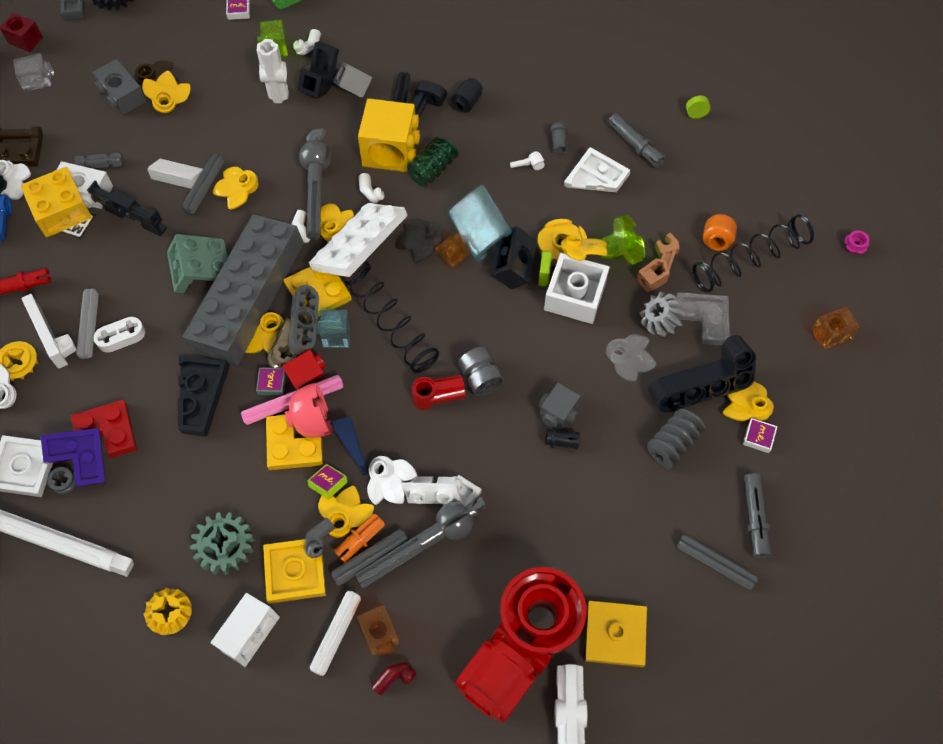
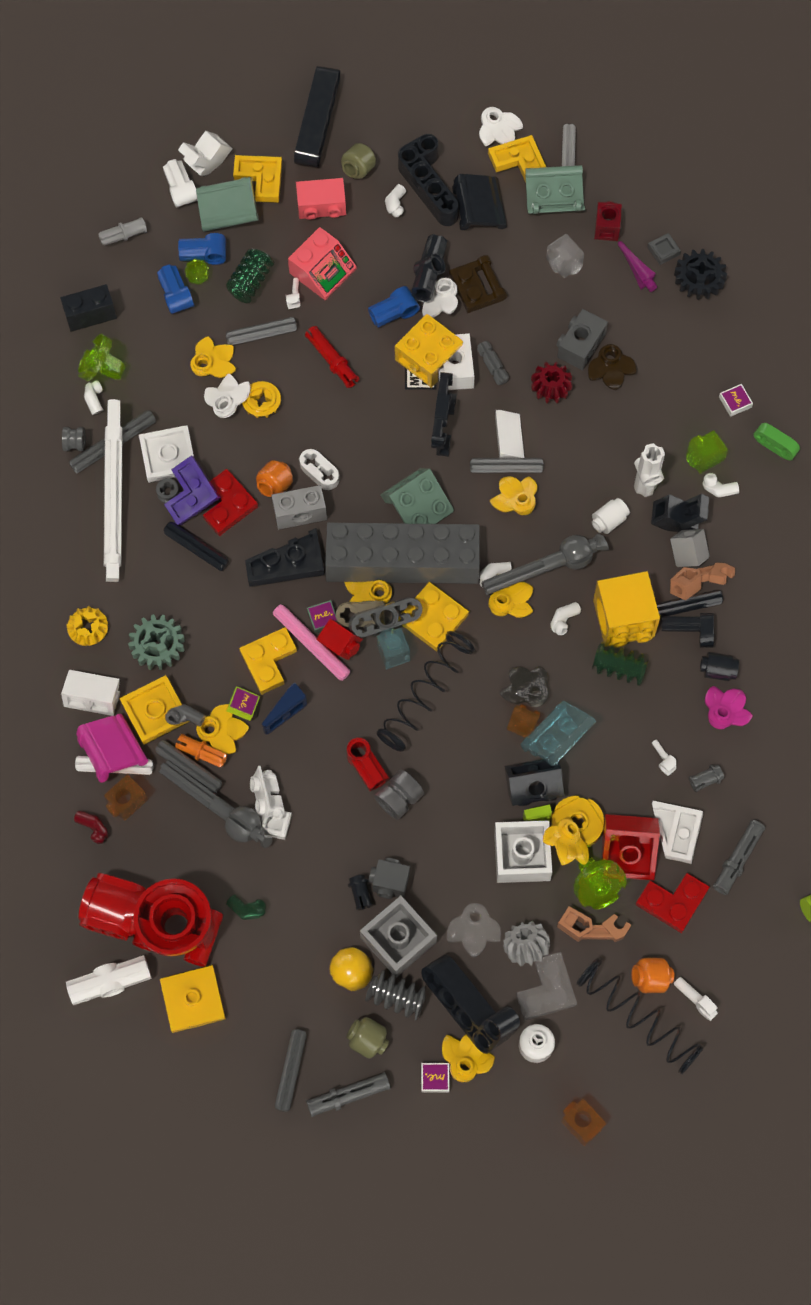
camera: 70 degrees right, 5 degrees up
(56, 348) = (283, 424): white hinge -> none
(83, 28) = (642, 273): none -> magenta piece
(87, 324) = (320, 437): light grey axle -> none
(107, 374) = (274, 478): none -> orange head
(136, 473) = (195, 546): none -> black axle
(145, 122) = (551, 382): none -> dark red gear
(149, 361) = (299, 507): none -> light grey brick
(166, 90) = (600, 383): yellow plate -> none
(294, 123) = (610, 516): none -> white brick
(309, 412) = (298, 661): coral cylinder -> none
(315, 627) = (110, 745): none -> dark pink piece
(358, 239) = (493, 630): white plate -> none
(380, 85) = (689, 580): none -> nougat piece
(389, 482) = (264, 753): white plate -> none
(503, 105) = (728, 705): none -> dark pink plate
(542, 550) = (246, 911): none -> clear green arm
(597, 206) = (632, 844): none -> red slope
(621, 416) = (398, 936): none -> light grey brick
(633, 472) = (351, 969): none -> yellow hair
(661, 201) = (673, 908): none -> red plate
(708, 478) = (367, 1037): none -> olive head
(757, 205) = (703, 1003): none -> white bar
(758, 336) = (535, 1052): none -> white head
(858, 237) = (709, 1119): dark pink plate -> none

